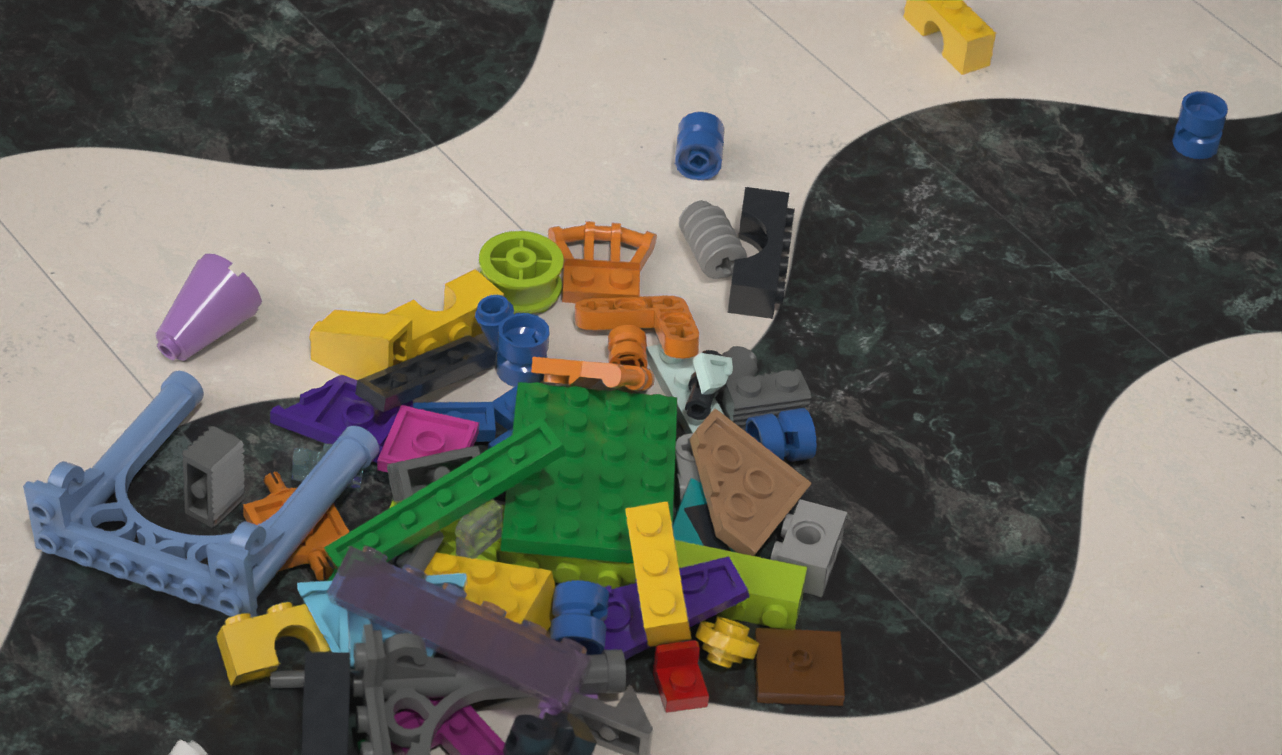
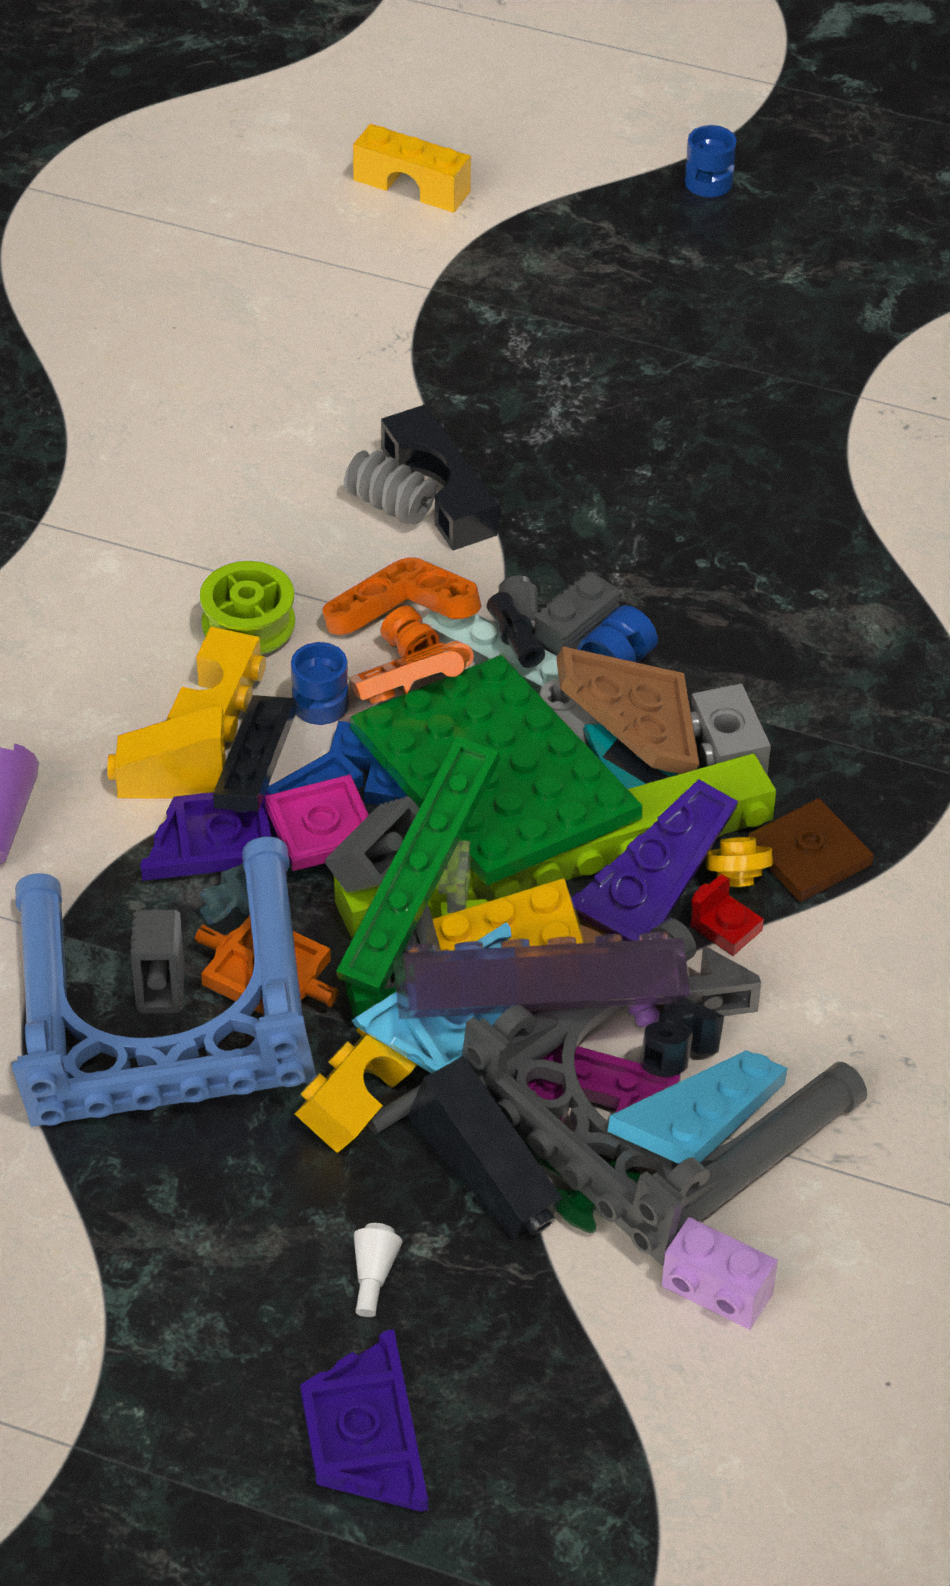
camera: 30 degrees left, 5 degrees up
(489, 315) = (273, 666): blue cone -> none
(580, 614) = (610, 905): blue wheel -> none
(601, 278) = (319, 575): orange plate -> none
(658, 574) = (680, 849): yellow arch -> none
(699, 146) = (297, 399): blue wheel -> none
(712, 371) = (523, 613): light aqua tile -> none

